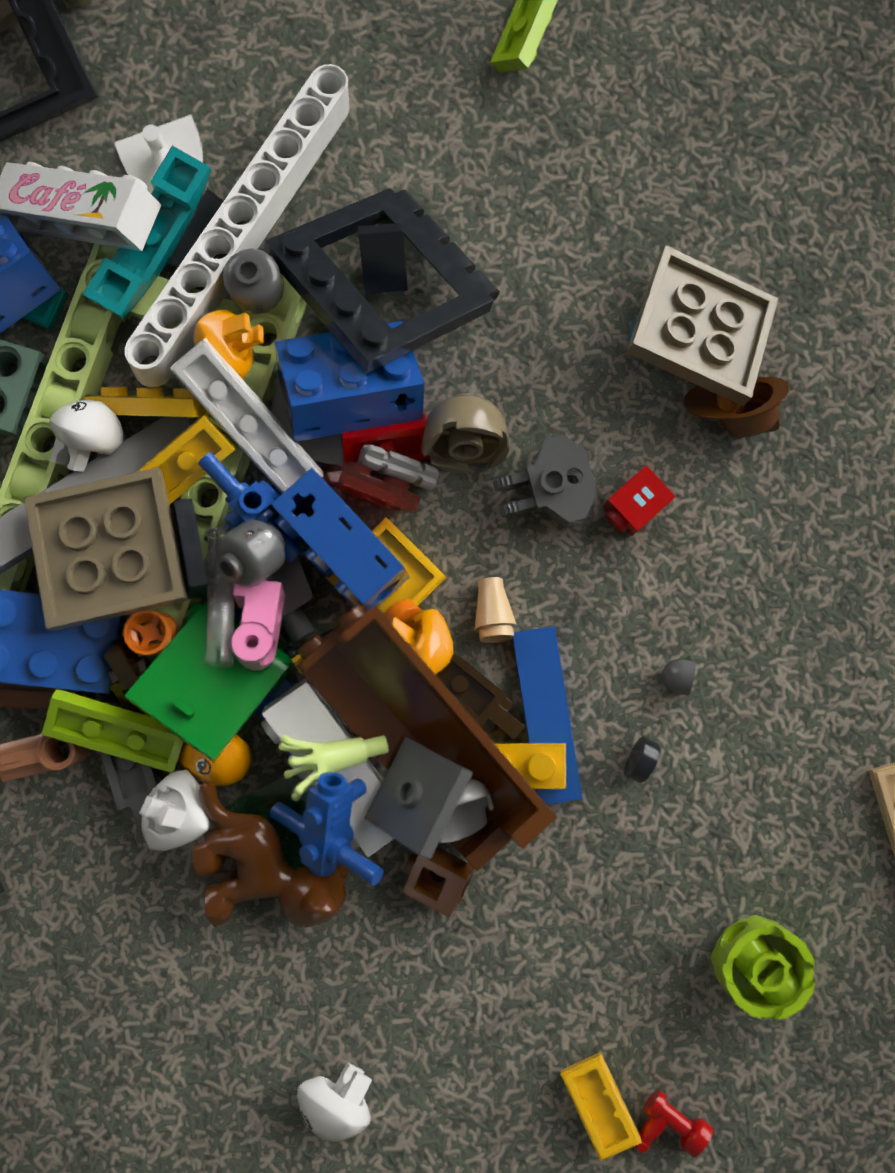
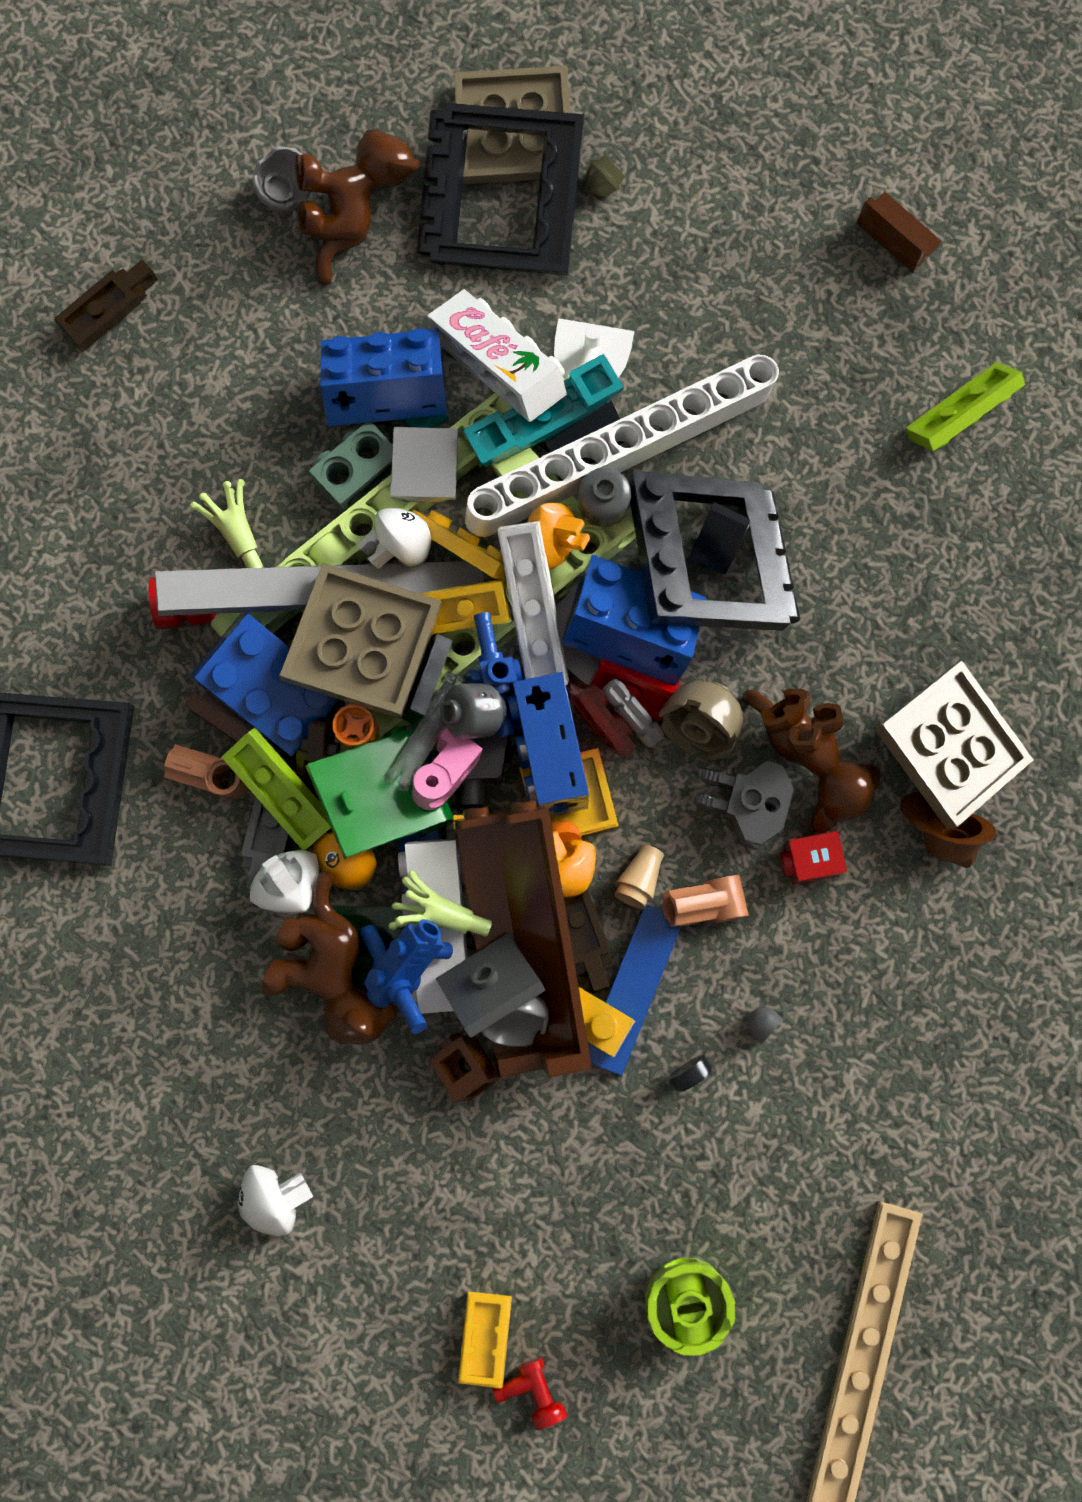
camera: 30 degrees right, 5 degrees down
(67, 348) = (424, 464): none -> light grey piece
(572, 594) = (715, 901): none -> nougat piece
(627, 421) = (843, 786): none -> reddish brown animal

